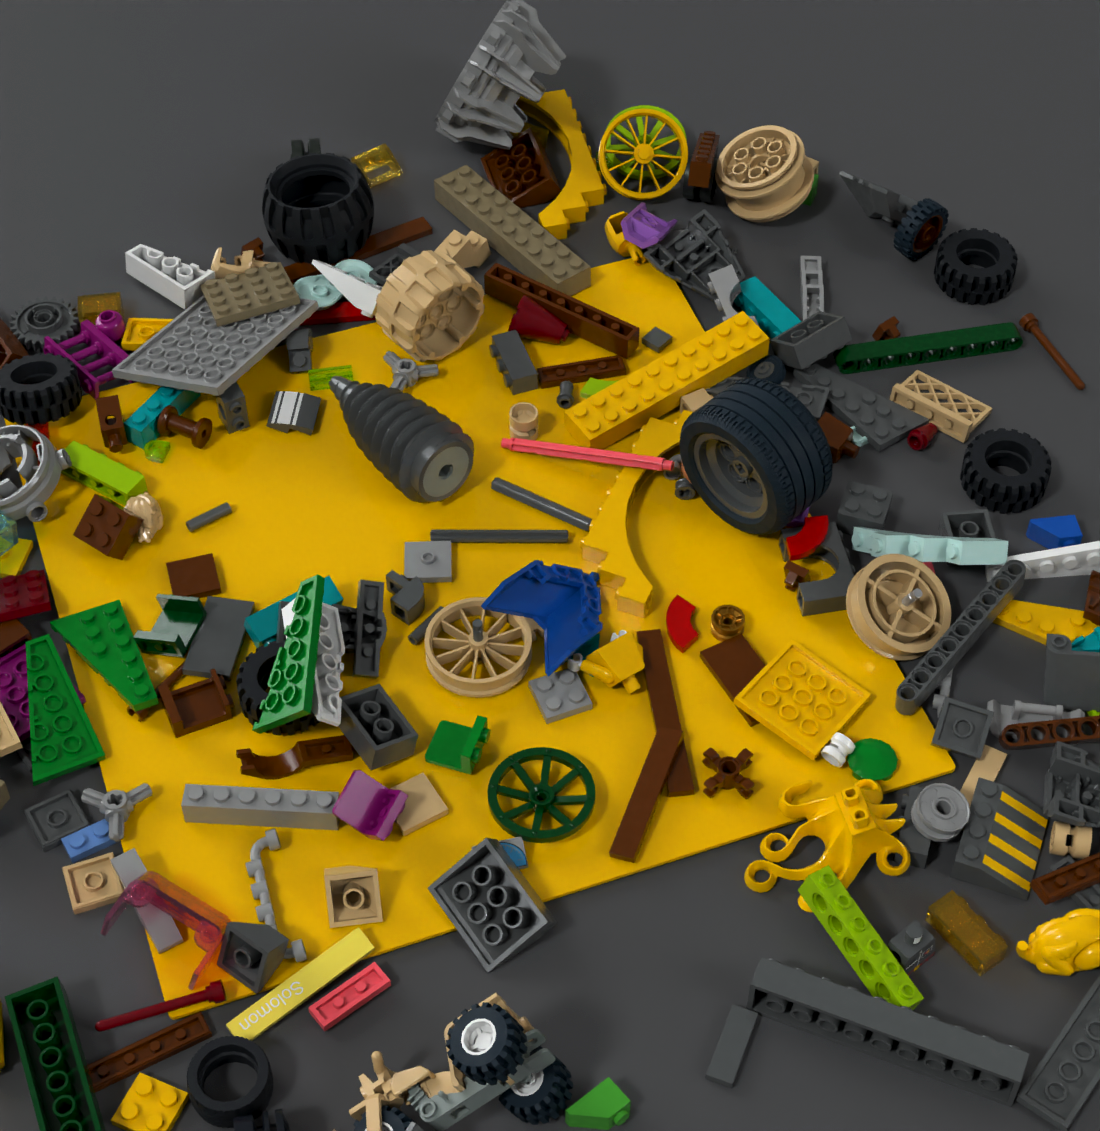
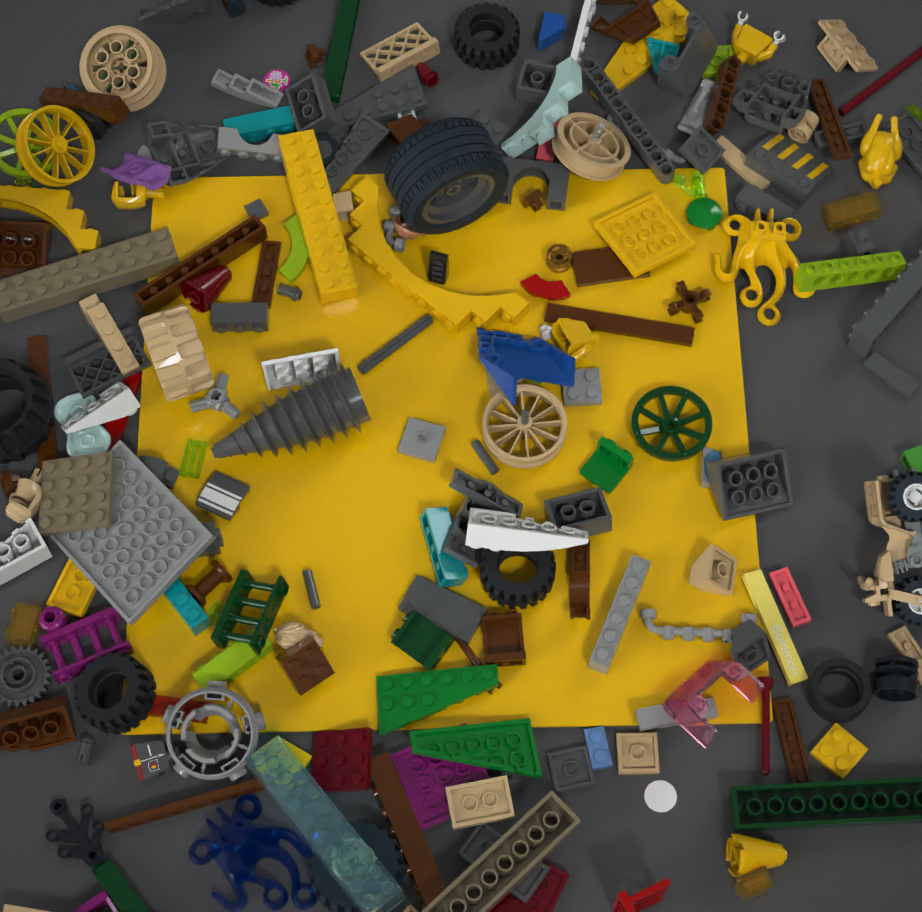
camera: 70 degrees left, 15 degrees up
(45, 923) = (660, 796): none -> white sticker
(111, 429) = (184, 640): reddish brown torso -> none
(116, 806) = (578, 725): light grey bush -> none
(159, 454) = (237, 600): none -> dark green fence
(194, 576) = (372, 615): reddish brown tile -> none
(295, 664) = (536, 547): green wing -> none
(369, 806) = (651, 535): magenta bracket -> none
(408, 597) = (454, 458): dark grey brick -> none
(421, 806) = (645, 511): tan tile -> none
(452, 402) = (289, 370): none -> white slope
(500, 536) = (416, 383): dark grey axle -> none
(523, 421) = (312, 329): tan wheel -> none
(588, 454) = (367, 293): coral piece -> none
(646, 794) = (689, 357): reddish brown tile -> none
(653, 509) = (438, 267): none -> black slope
(684, 489) = (422, 242): dark grey bush -> none
(808, 538) = (516, 183): red tile -> none
(838, 749) = (693, 228): white wheel -> none
(843, 310) = (277, 80): none -> sticker
(910, 741) = (698, 183): none -> clear neon green plant
(934, 824) = (769, 187): light grey wheel -> none

